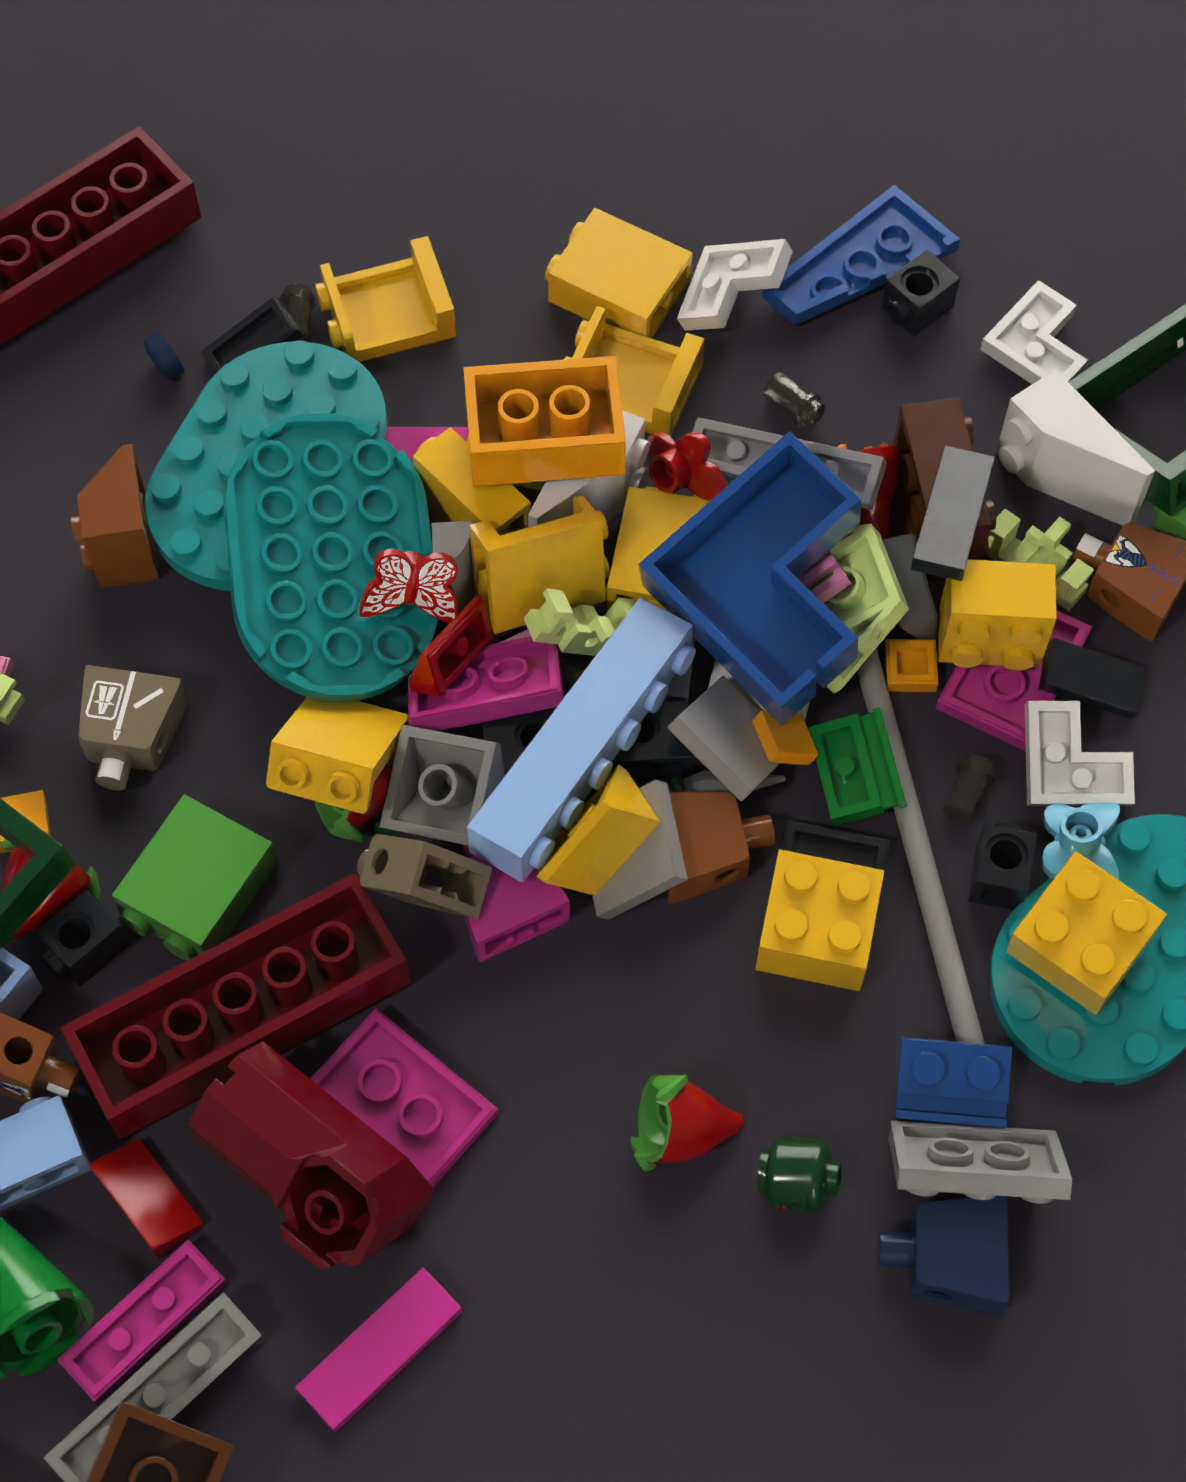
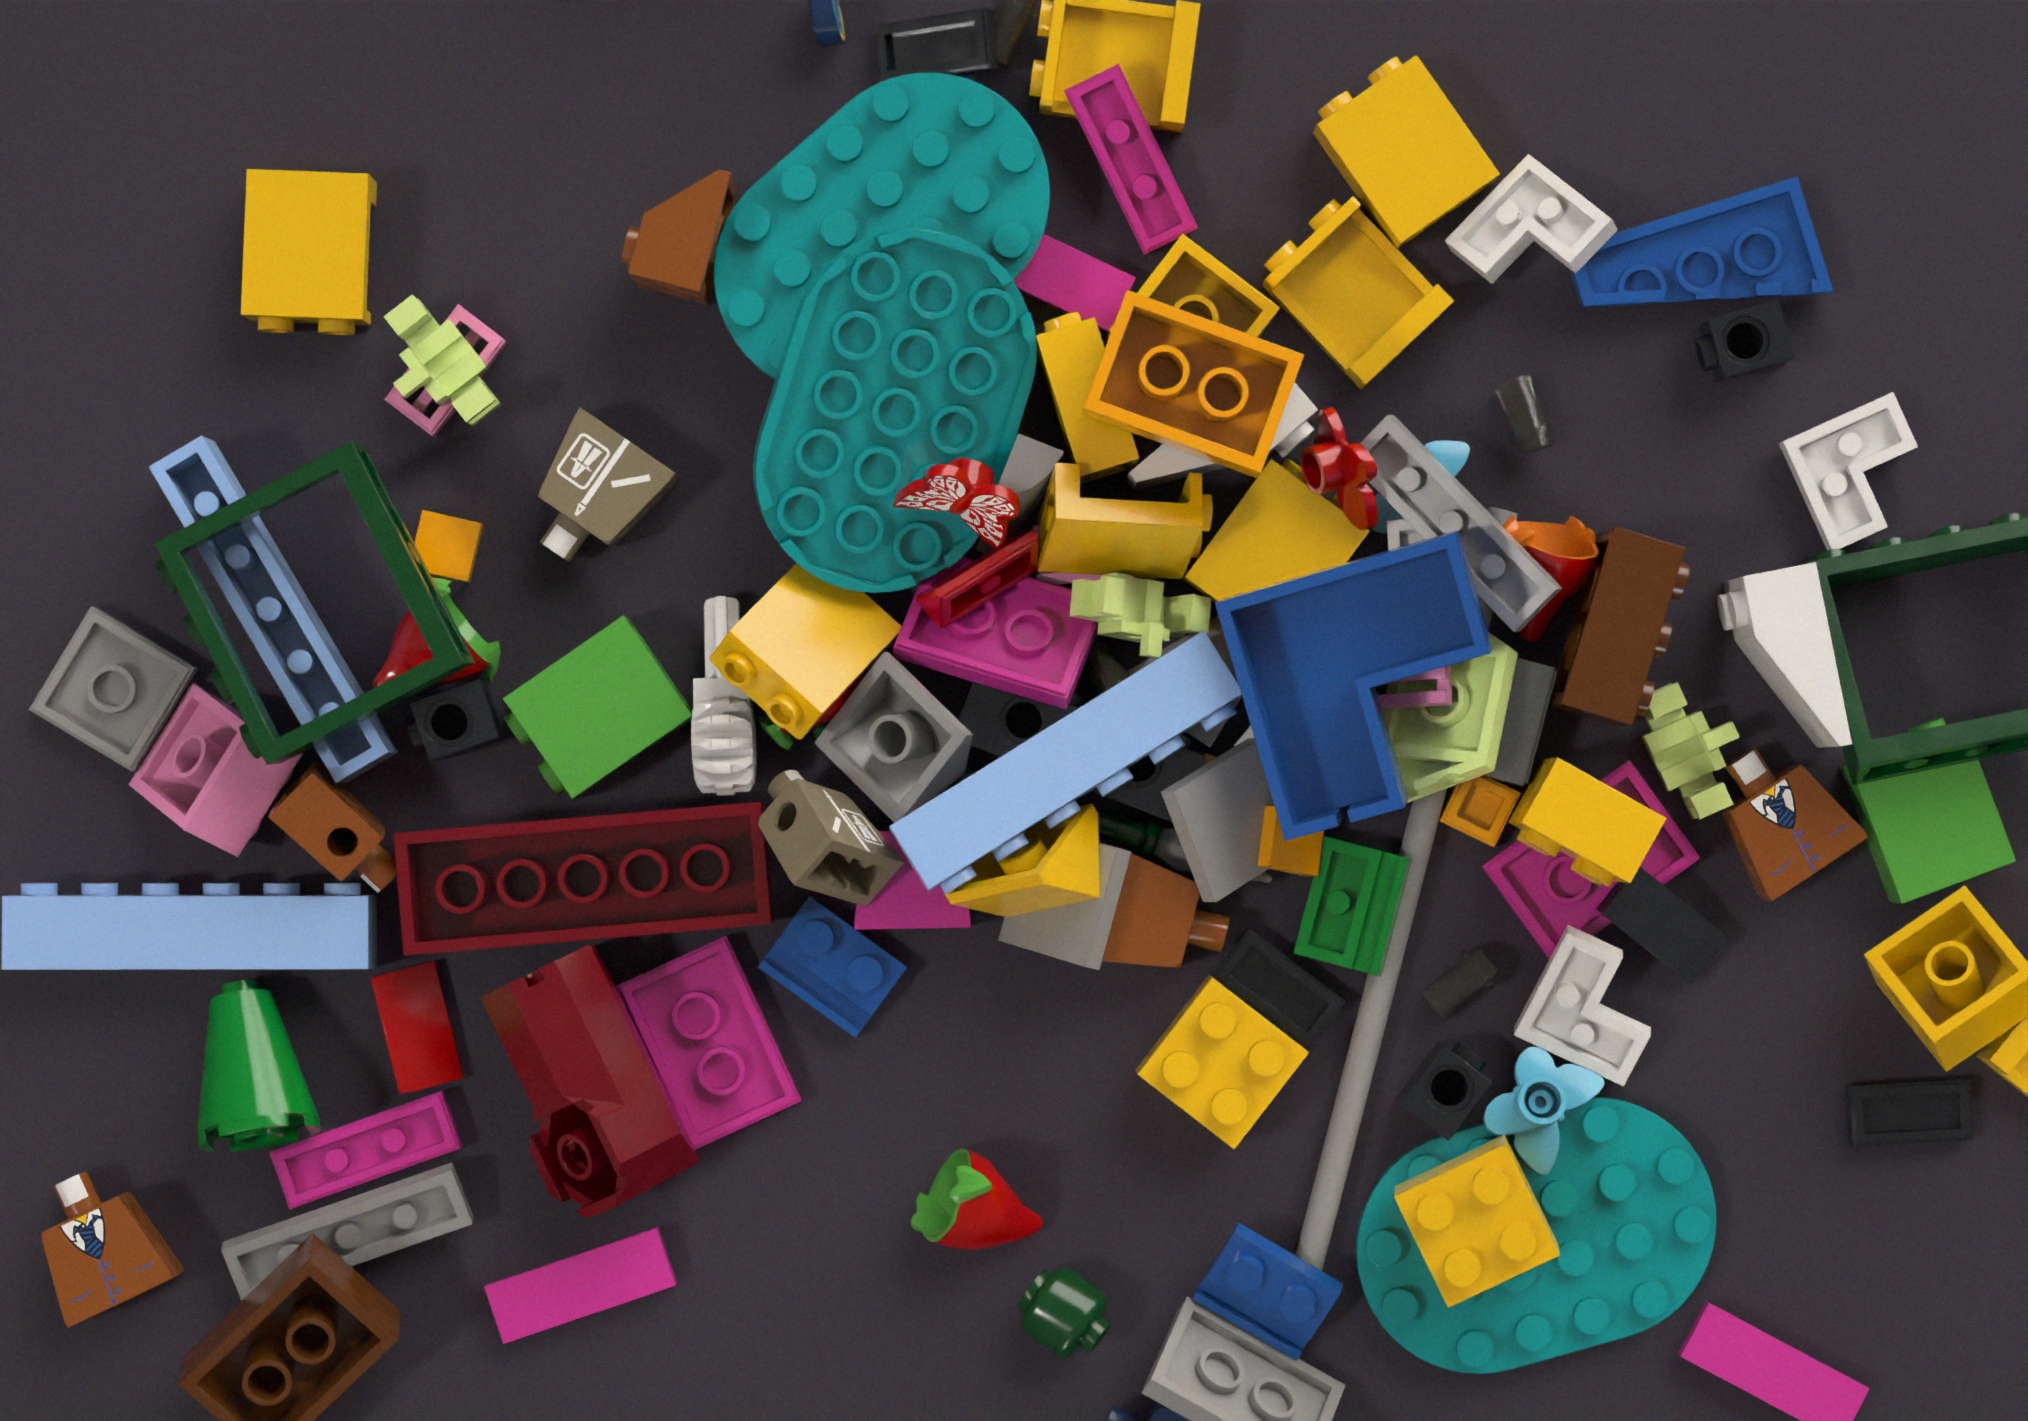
camera: 25 degrees right, 25 degrees up
(297, 837) = (721, 715): none -> white gear
(418, 350) = (1131, 159): none -> dark pink tile
(473, 996) = (832, 966): none -> blue plate
(952, 513) = (1589, 704): tile -> none

